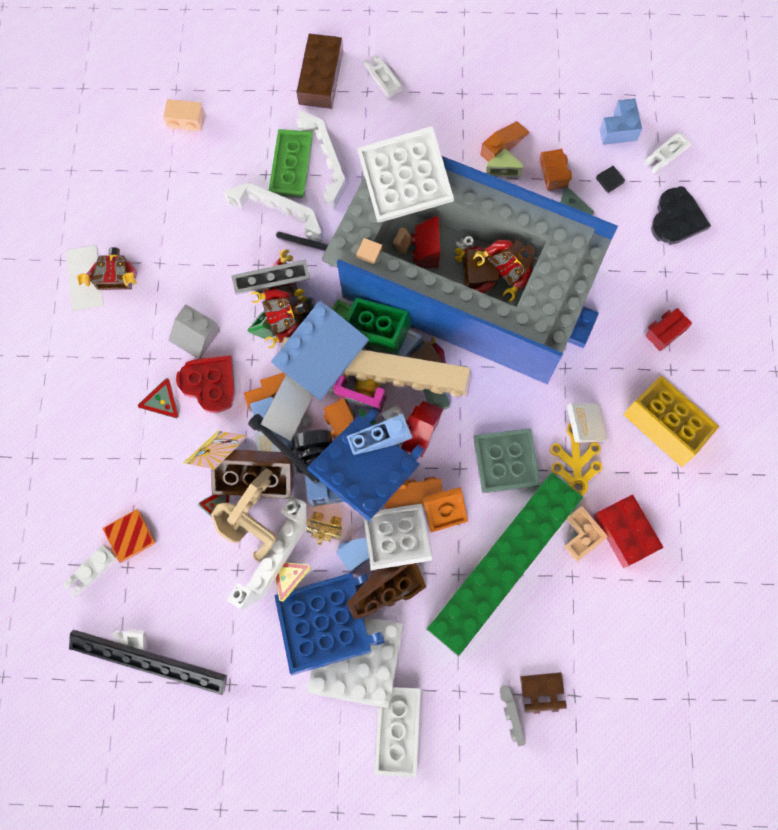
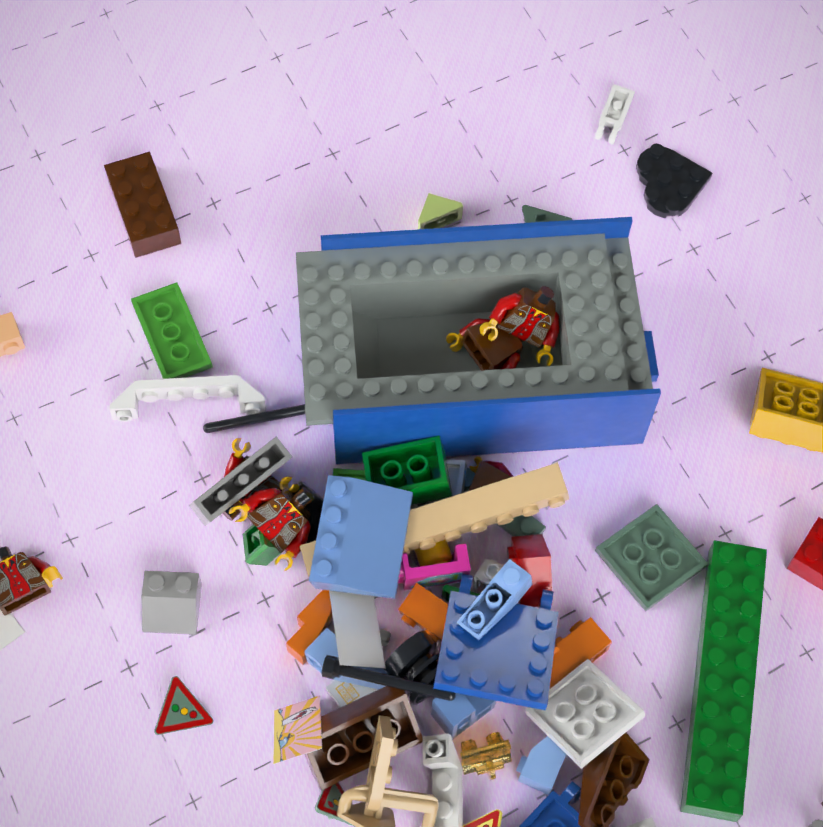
camera: 35 degrees left, 10 degrees down
(208, 381) = (228, 654): red plate -> none
(316, 125) = (166, 273): white slope -> none
(369, 251) = (361, 383): light nougat tile -> none
(383, 77) = (225, 176): white hinge -> none
(402, 241) = (377, 357): light nougat tile -> none
(405, 174) = (353, 273): white plate -> none
(426, 244) = (411, 345): red slope -> none
(445, 509) = (618, 650): orange tile -> none
(465, 243) = (460, 321): white arm -> none
(504, 138) = (417, 186): orange slope -> none
(555, 169) = (499, 190): orange brick -> none
(576, 463) = (730, 516): yellow plant -> none
(586, 422) = (716, 463): white tile -> none
(588, 535) = (797, 593): light nougat plate -> none
(610, 179) = (568, 173): black piece -> none
(624, 125) = (547, 103): medium blue brick -> none
(668, 329) = (738, 312): red brick -> none

